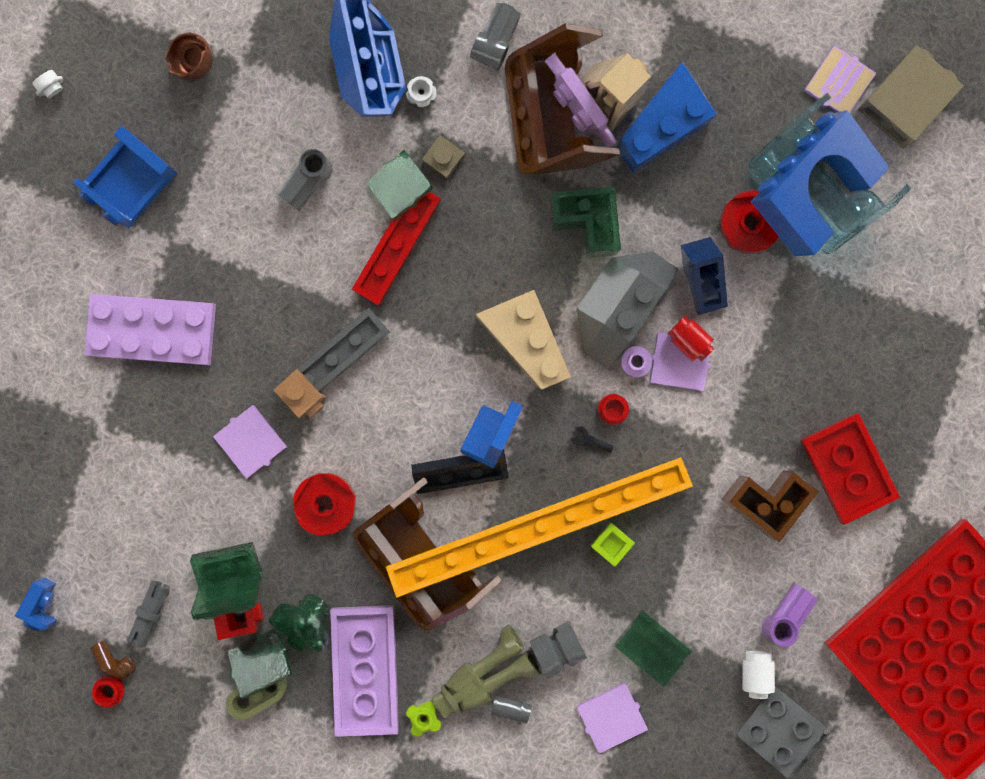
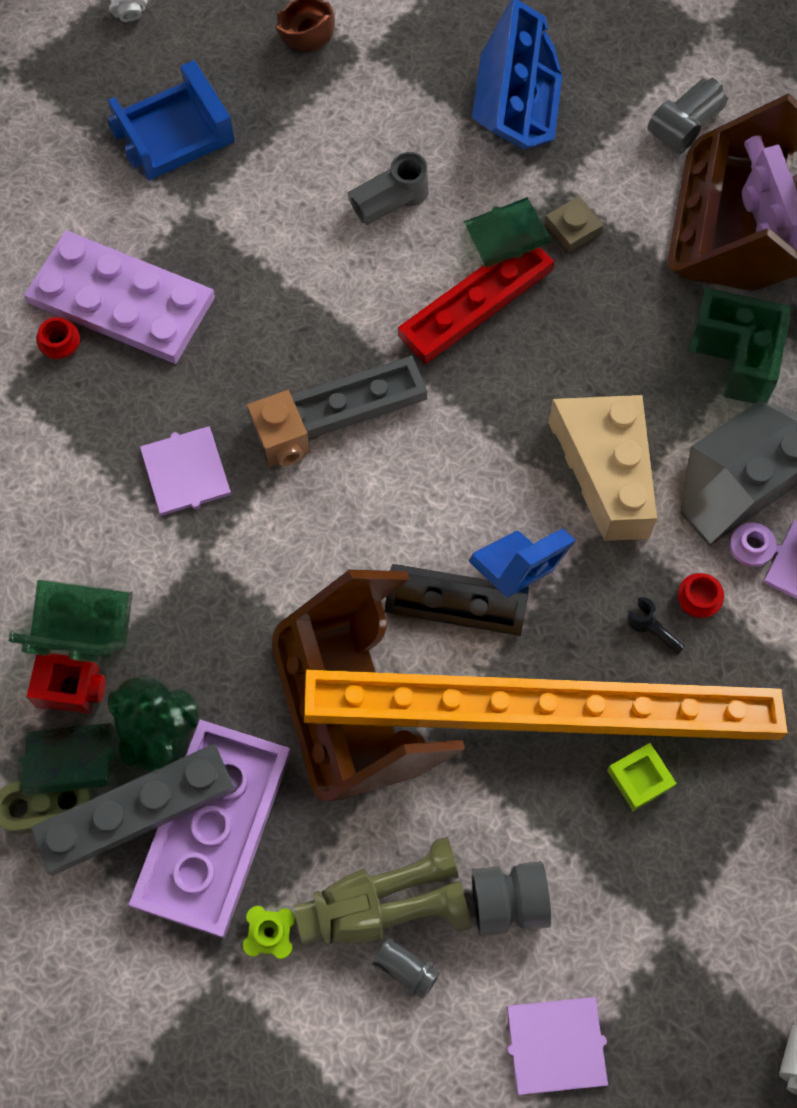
camera: 20 degrees right, 20 degrees down
(114, 374) = (54, 328): none -> red plate
(307, 507) = (248, 604): red plate -> none
(314, 682) = (132, 809): none -> dark grey plate
(417, 84) = (576, 136): white plate -> none
(652, 648) = (656, 954): clear green plate -> none

